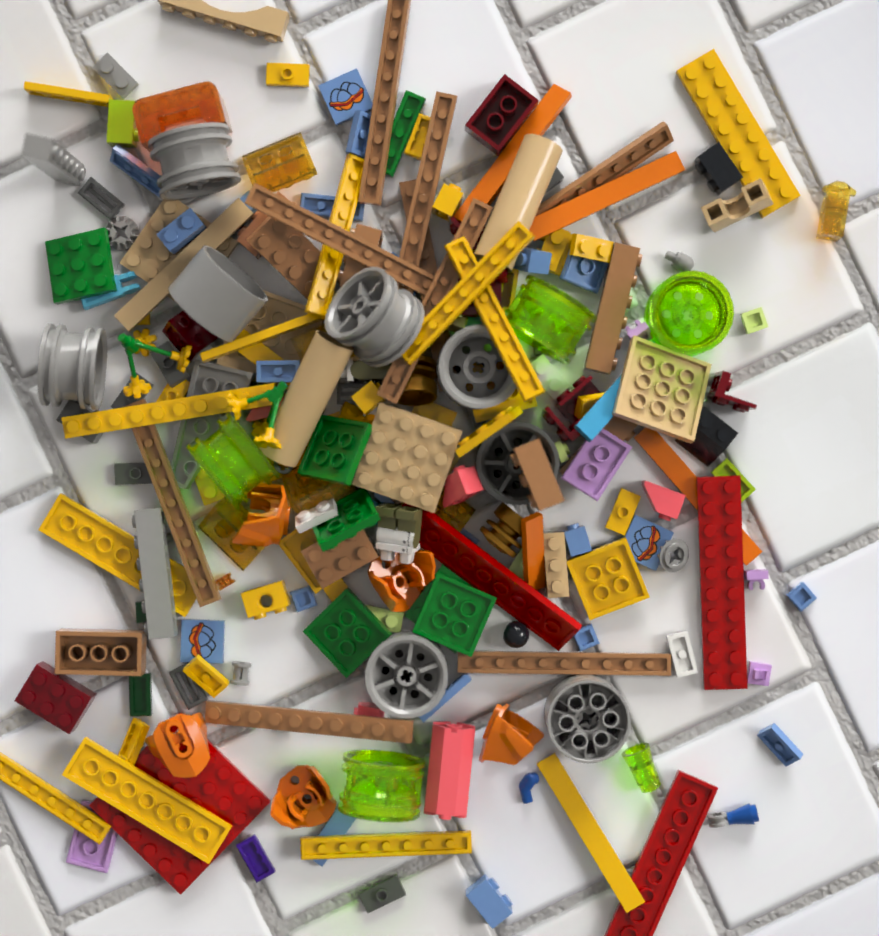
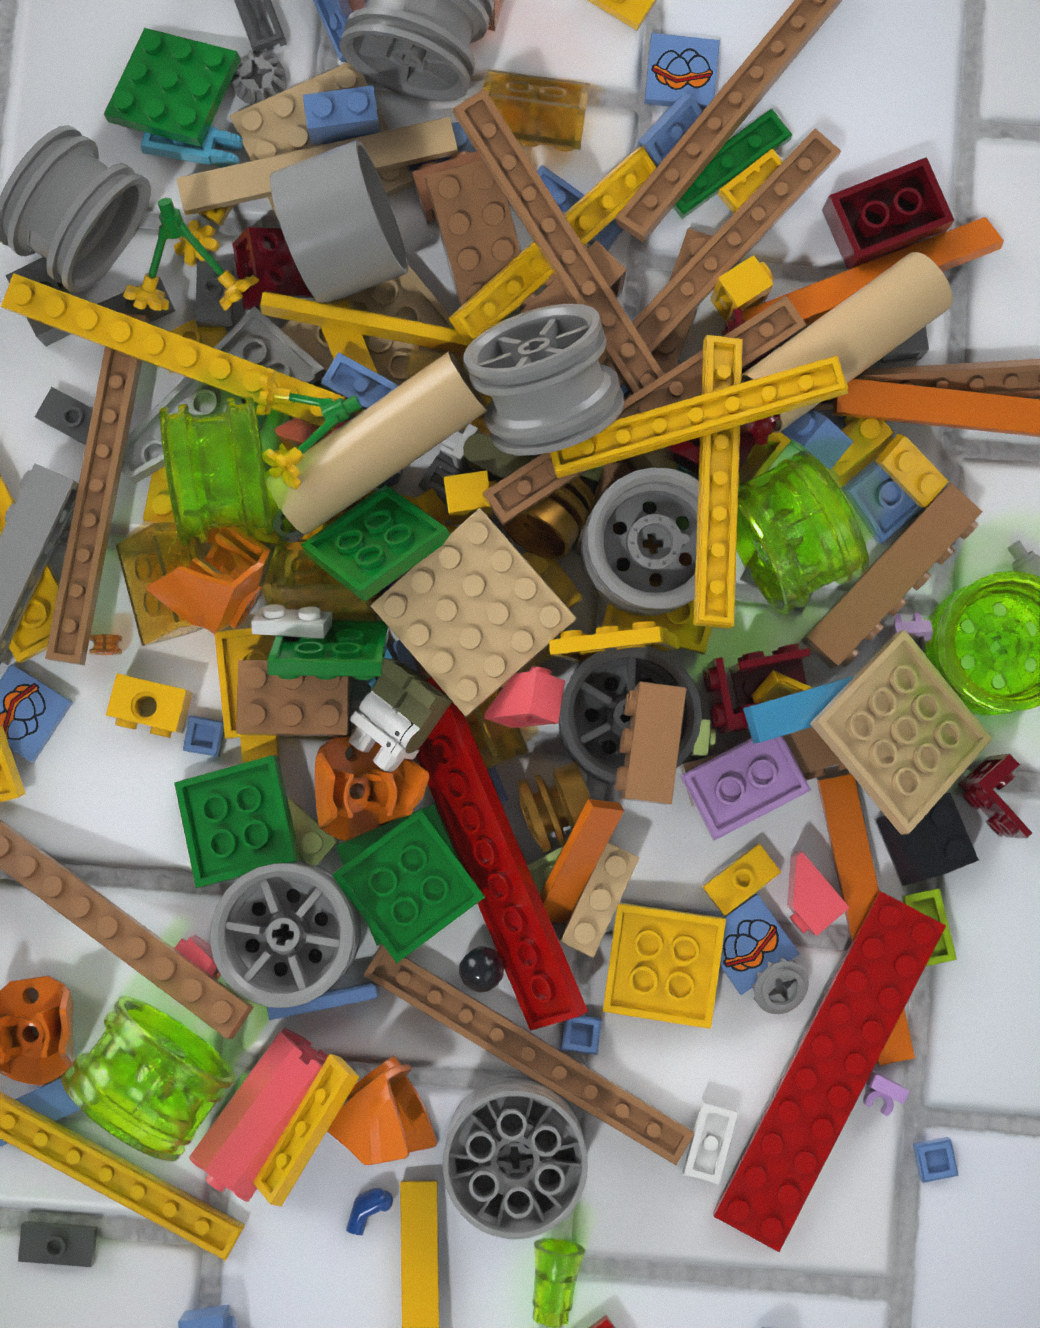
camera: 20 degrees right, 5 degrees down
(243, 680) = (46, 803): light grey bush -> none
(474, 765) = (305, 1130): none -> yellow plate
(549, 377) = (748, 629): plate -> none
(576, 539) = (651, 881): medium blue brick -> none
(759, 673) = (808, 1239): lavender tile -> none

